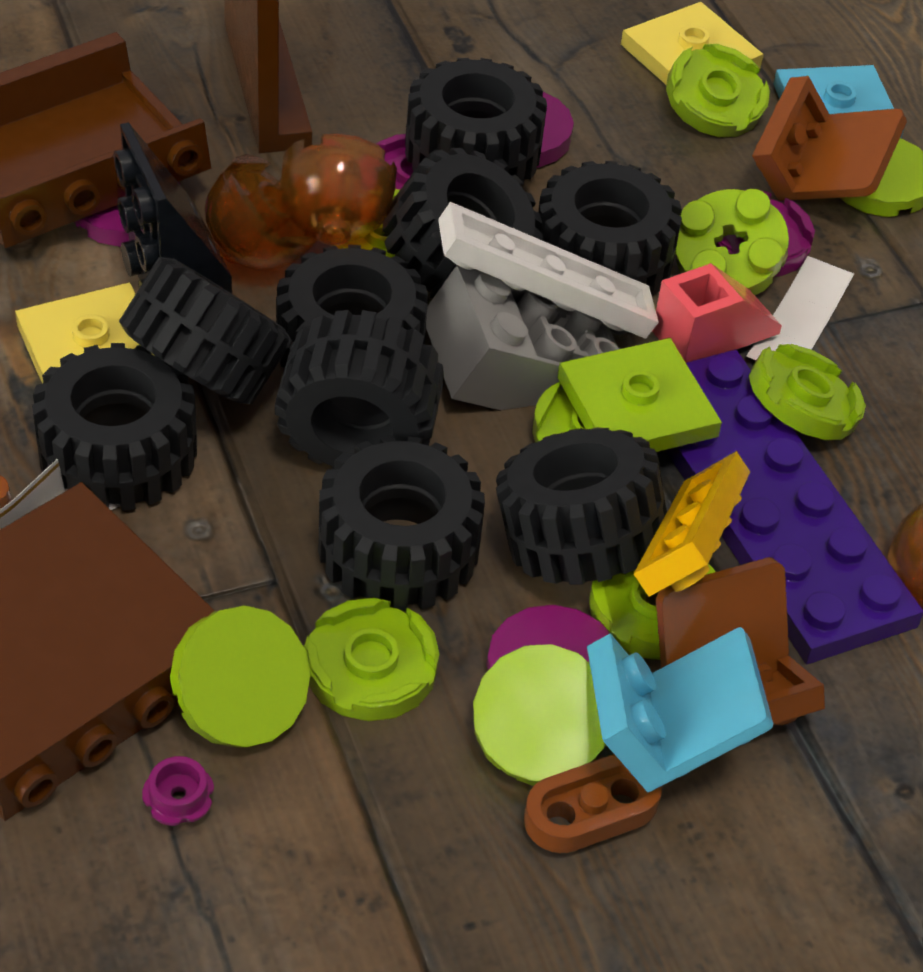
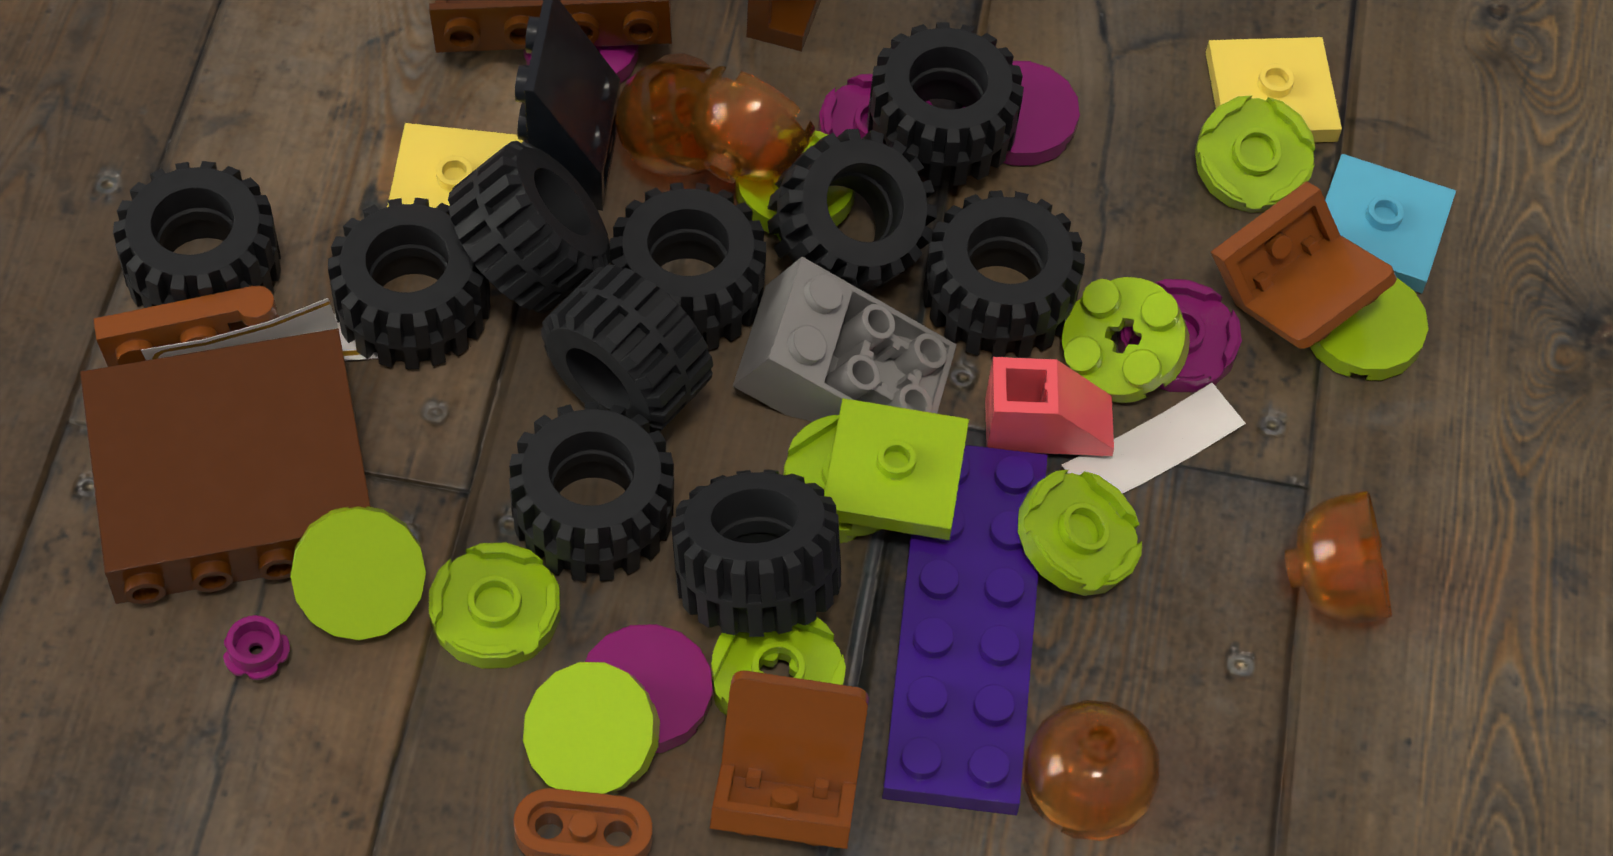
camera: 30 degrees right, 10 degrees up
(546, 270) = (888, 299): white plate -> none
(681, 713) = (676, 788): medium azure bracket -> none
(693, 527) = (837, 616): yellow plate -> none

